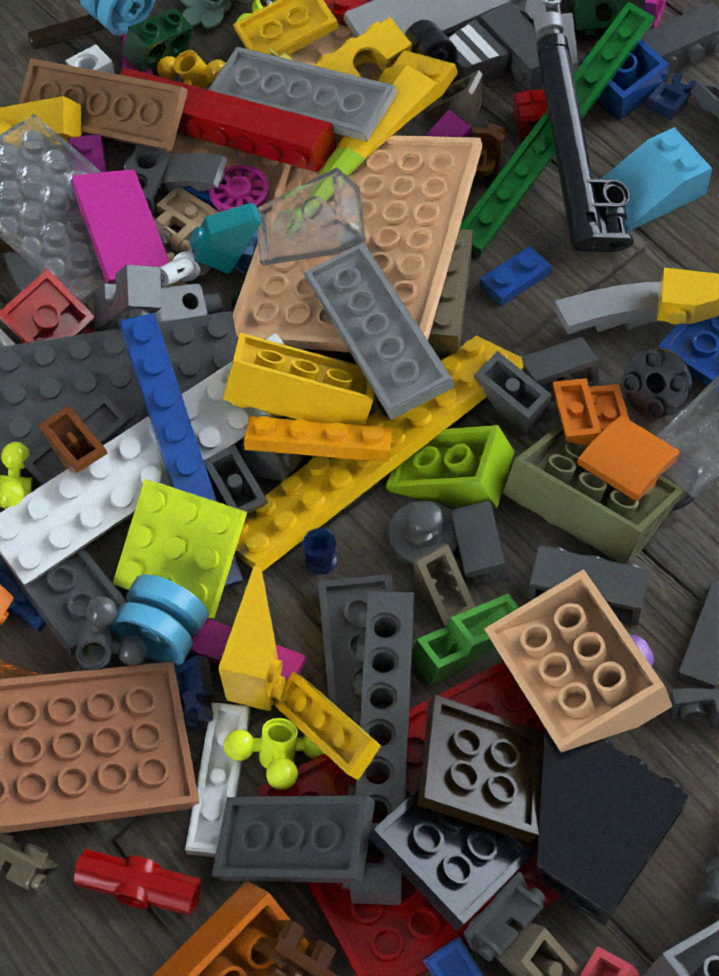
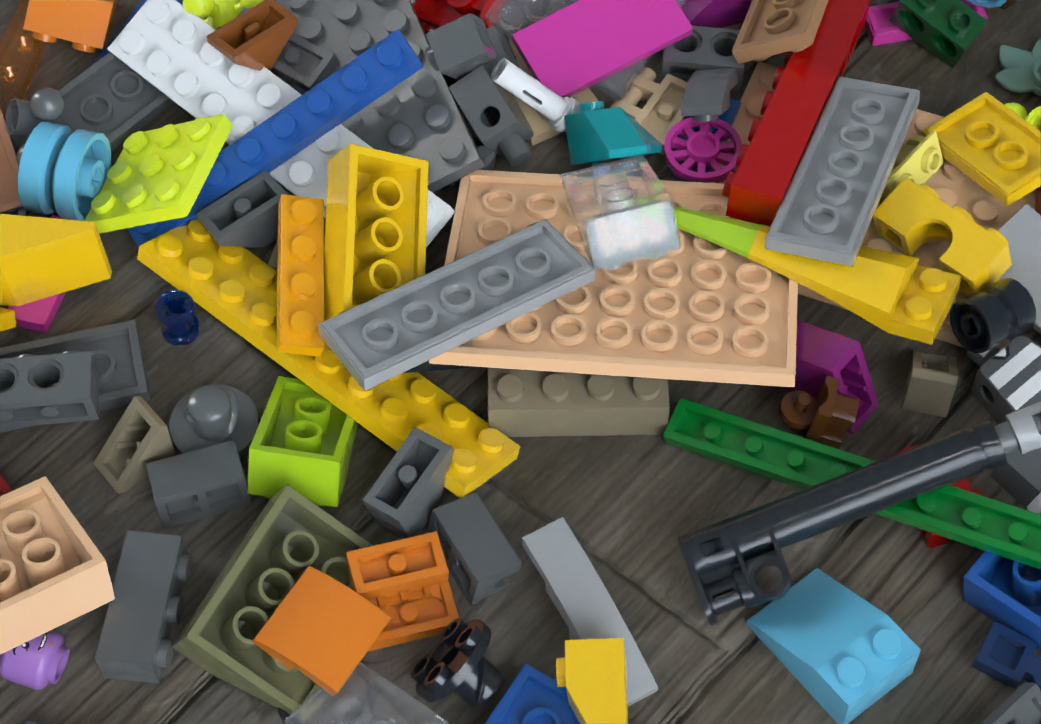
camera: 80 degrees right, 0 degrees up
(190, 69) = (899, 66): yellow piece -> none
(459, 642) = (47, 454): bright green slope -> none
(515, 276) = (634, 486): blue plate -> none

